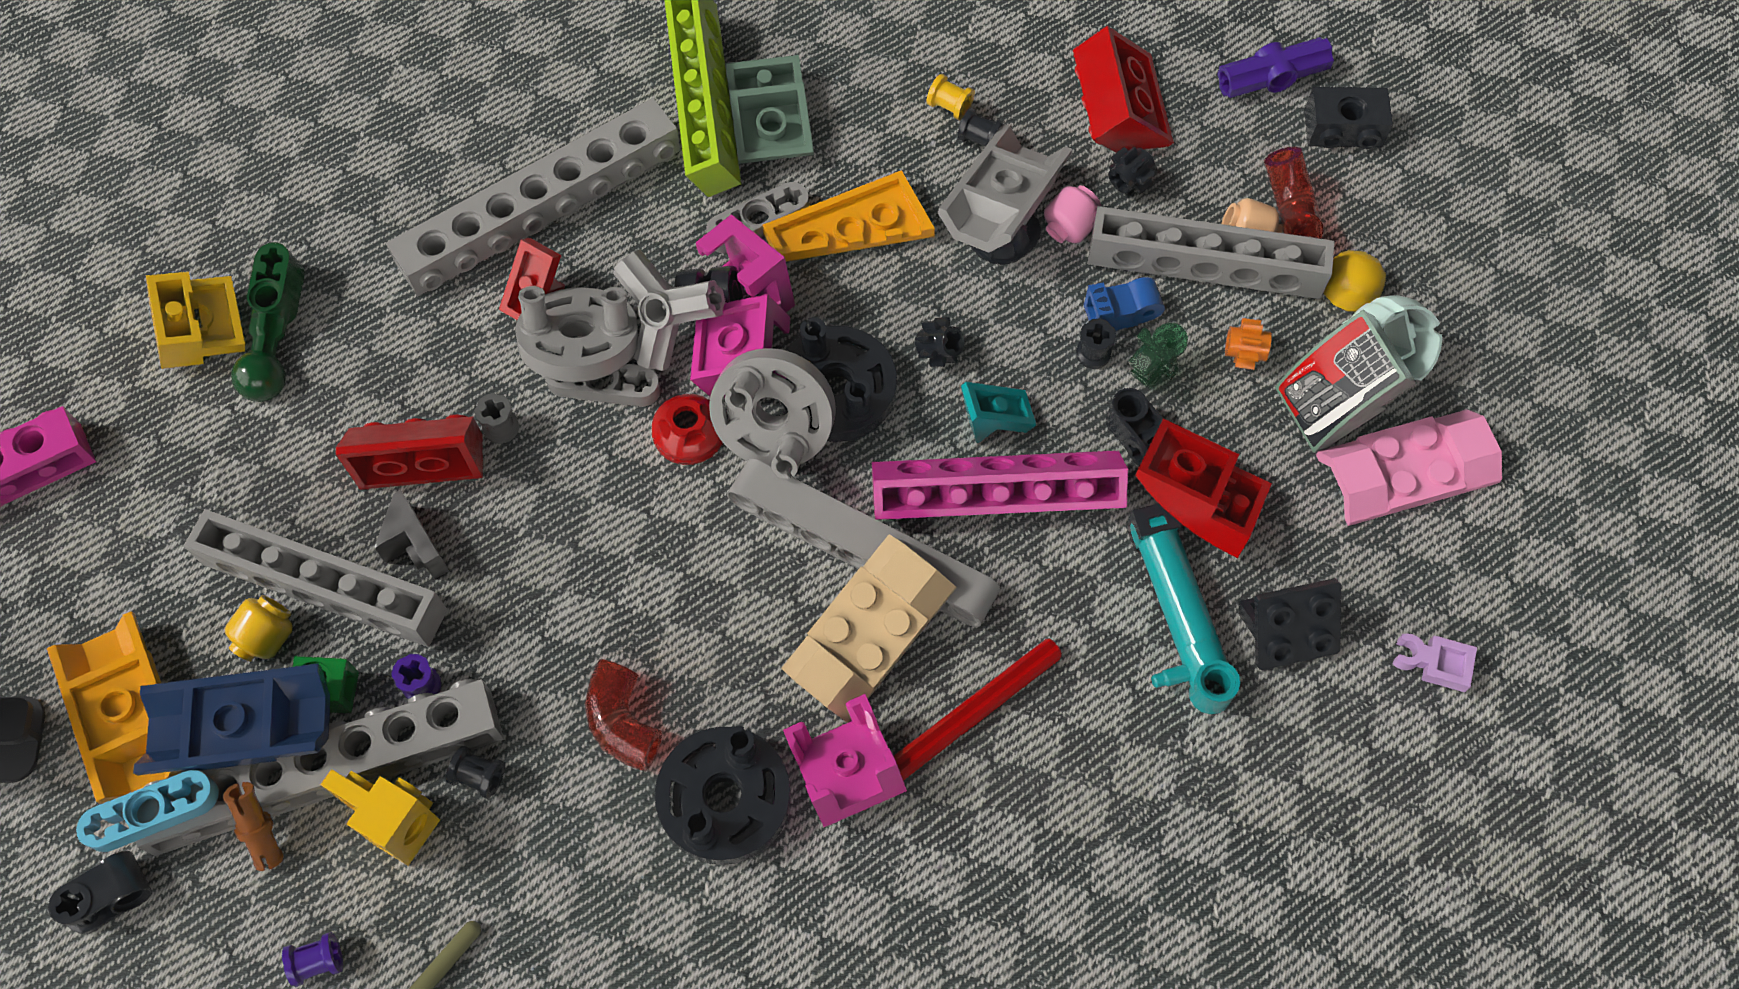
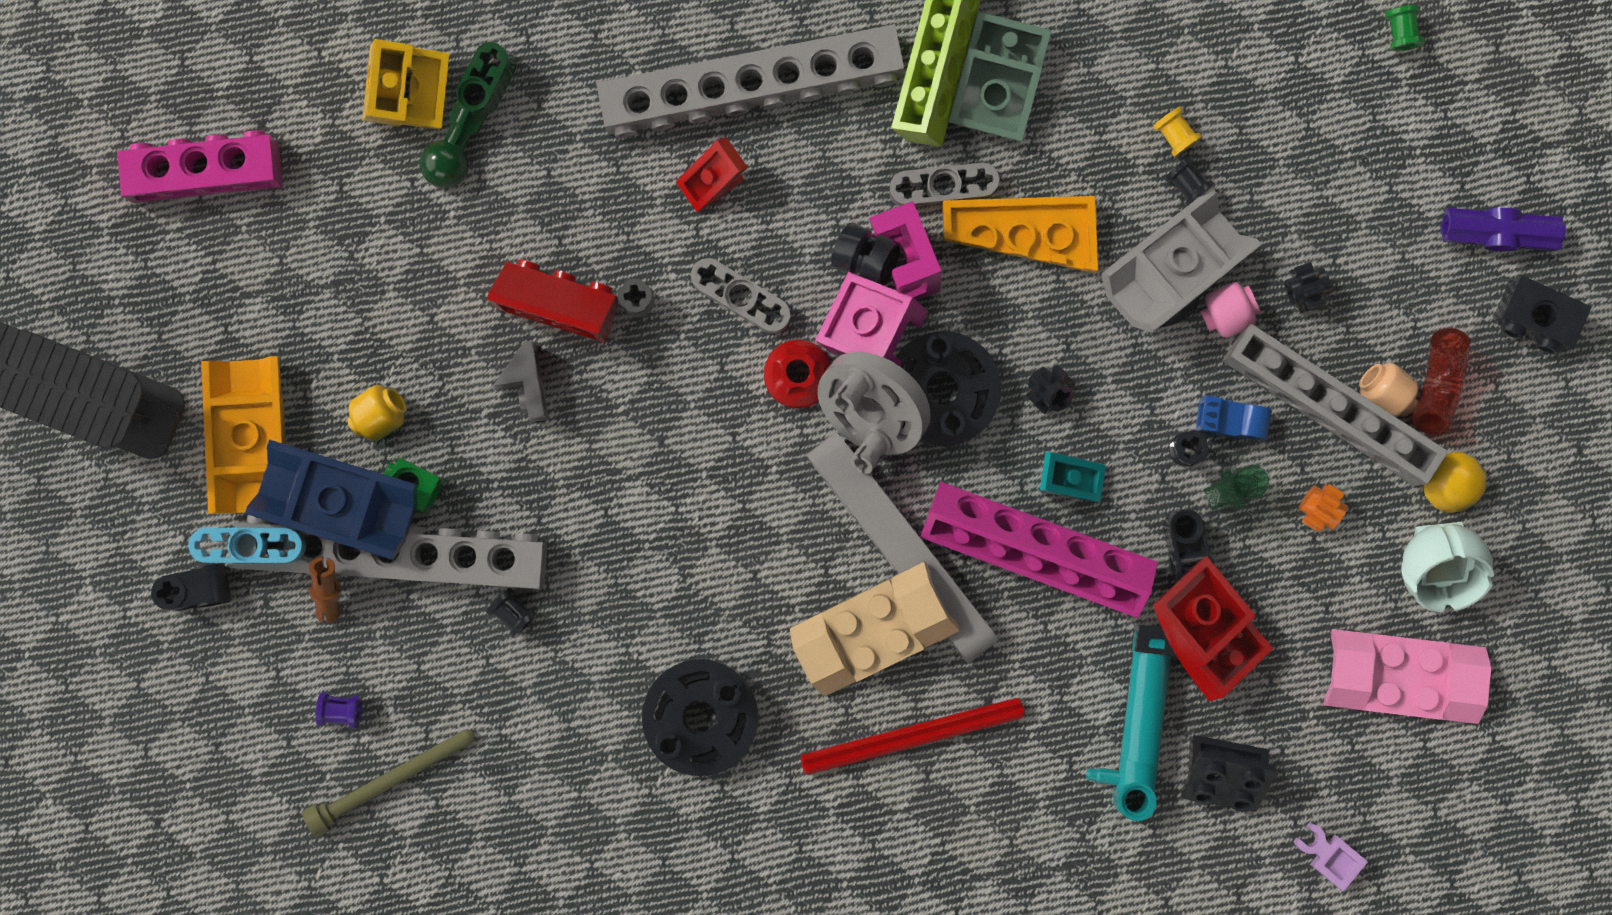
camera: 25 degrees right, 20 degrees up
(316, 577) = (436, 390): light grey brick -> none
(385, 813) = (431, 629): yellow brick -> none
(414, 667) = (479, 514): dark purple bush -> none
(594, 313) = (710, 226): light grey piece -> none
(611, 720) = (635, 618): clear red cylinder -> none
(682, 305) = (819, 263): light grey piece -> none
(847, 765) = (806, 738): dark pink panel -> none
(1121, 93) = (1340, 198): red slope -> none
(1344, 381) = (1382, 590): slope -> none

